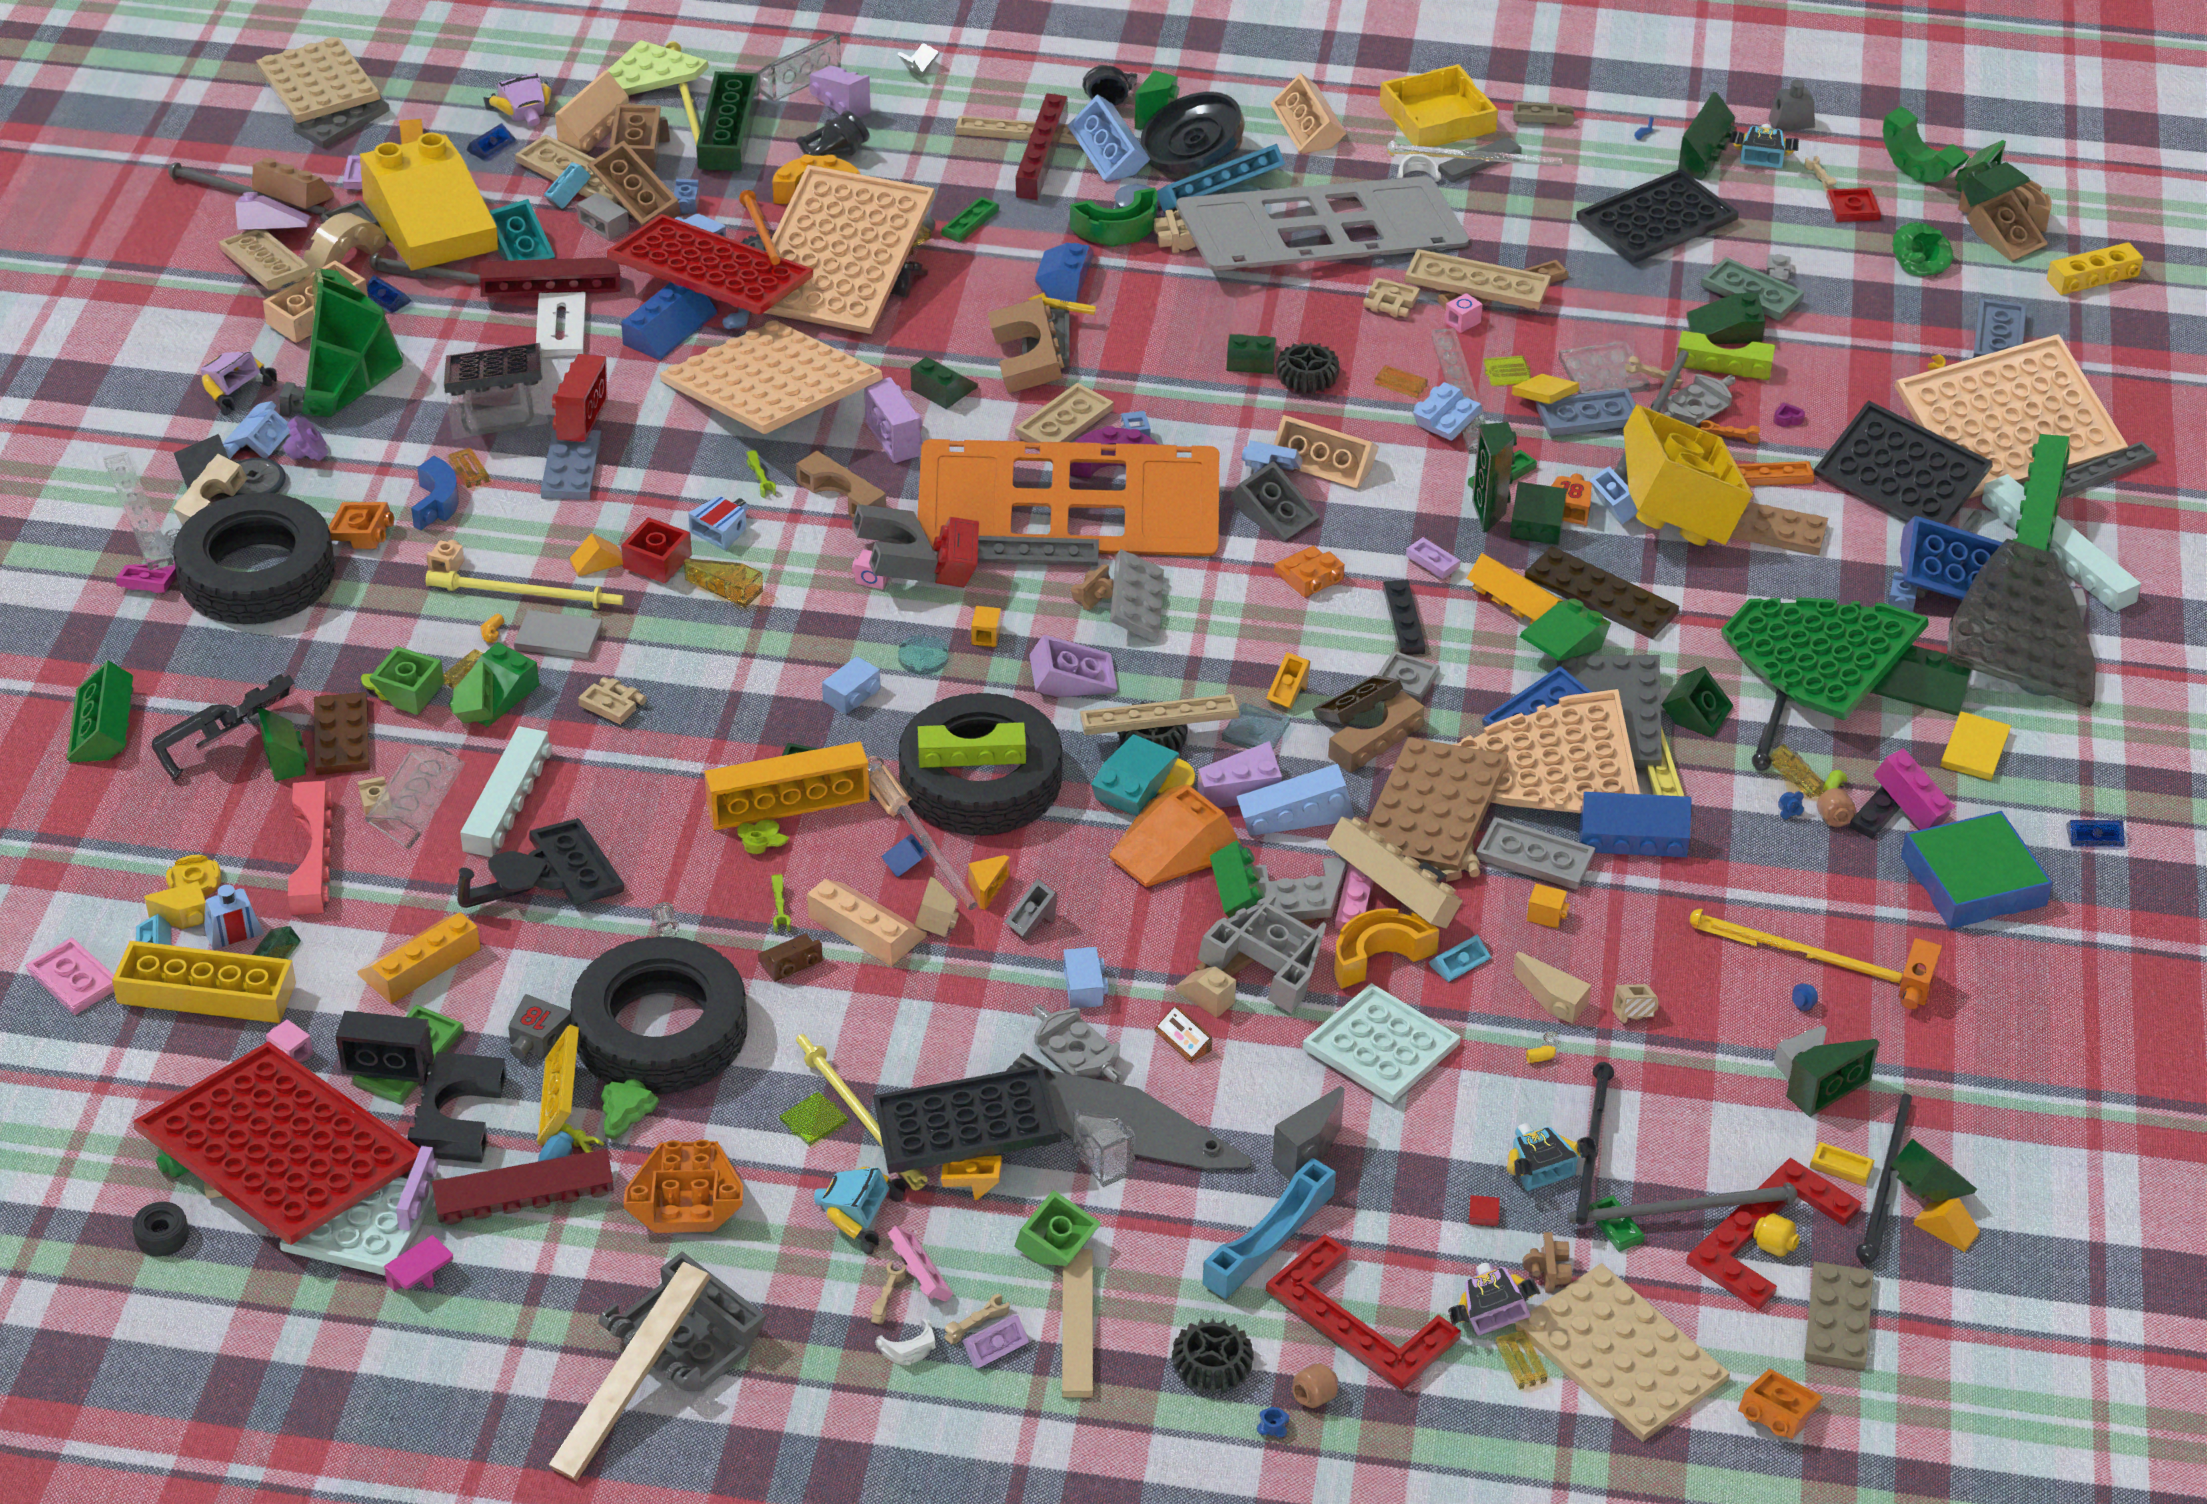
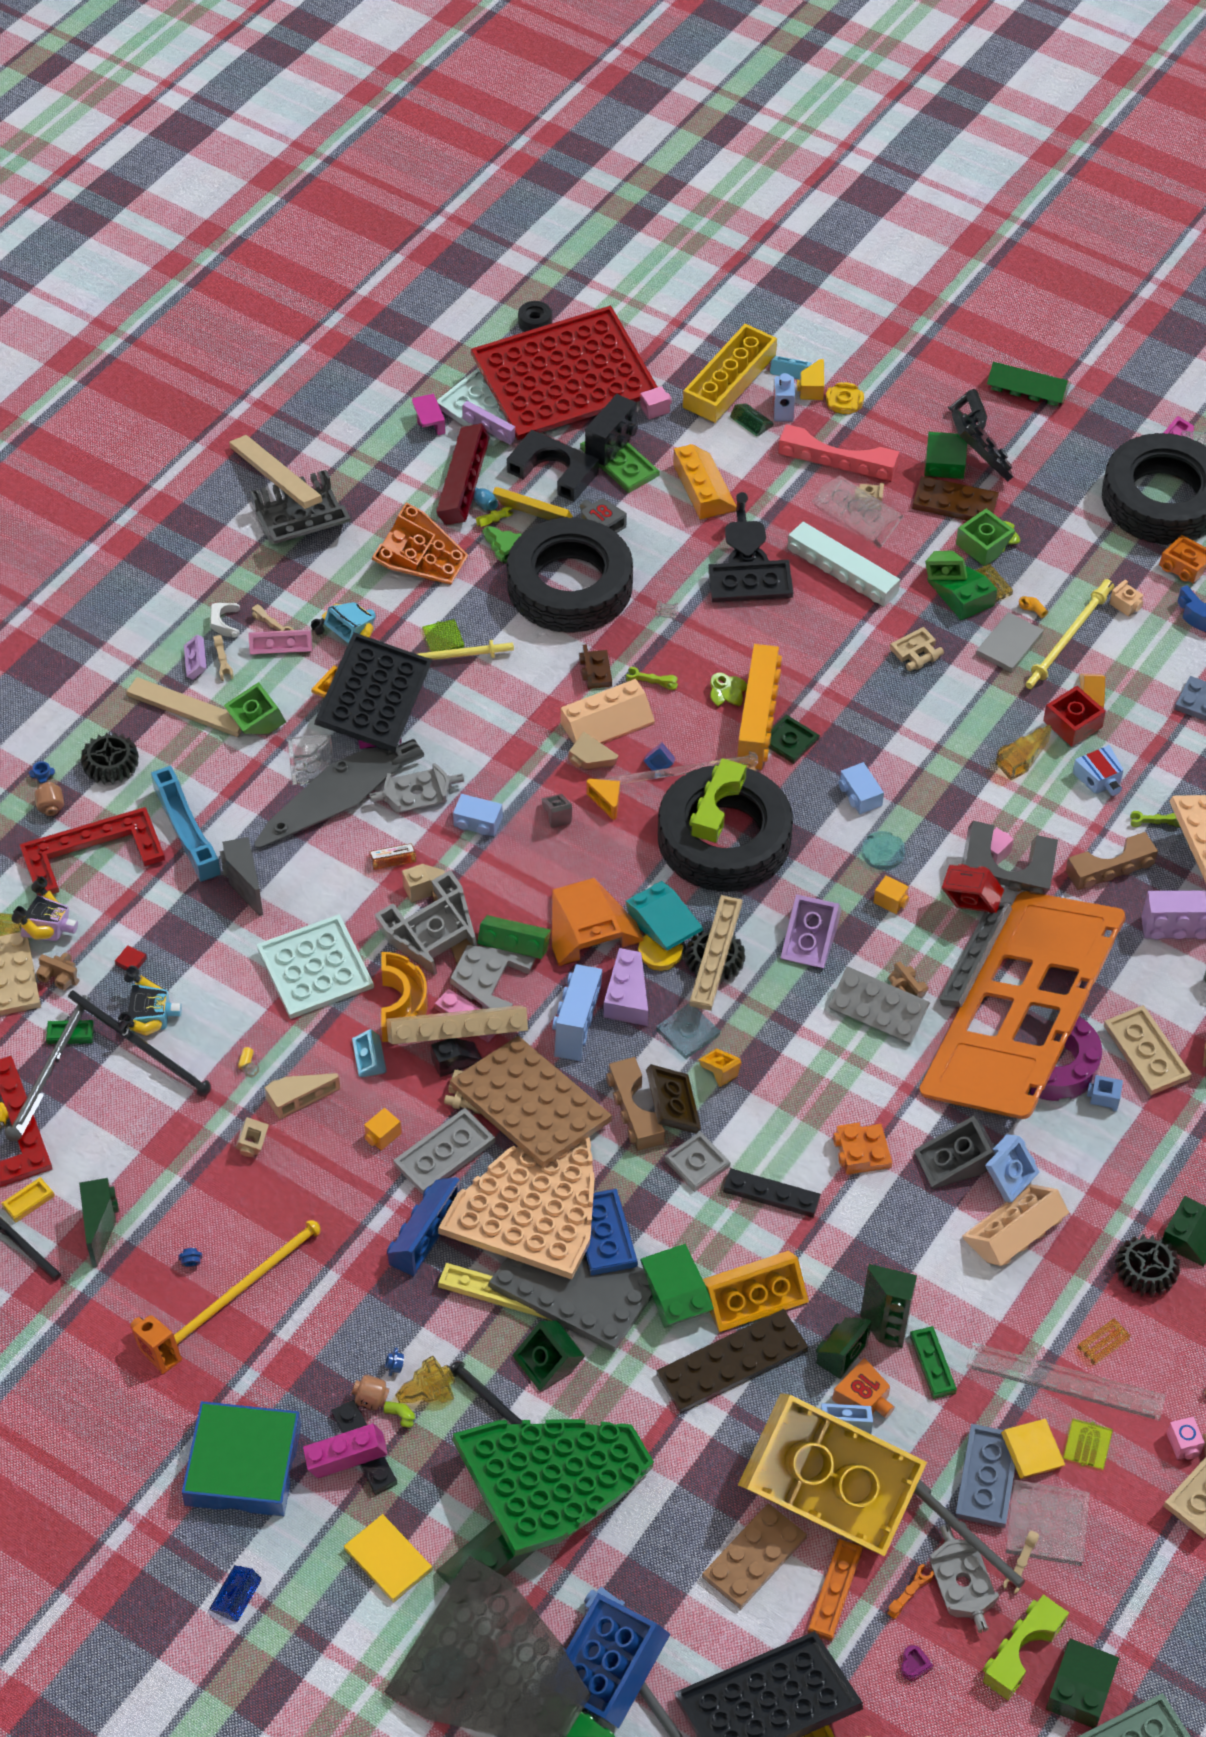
camera: 115 degrees right, 10 degrees up
(72, 975) = (784, 324): bright pink tile -> none
(1433, 558) = (834, 1245): lavender plate -> none
(1446, 411) = (1028, 1343): light blue plate -> none
(1789, 1048) = (134, 1221): light grey slope -> none

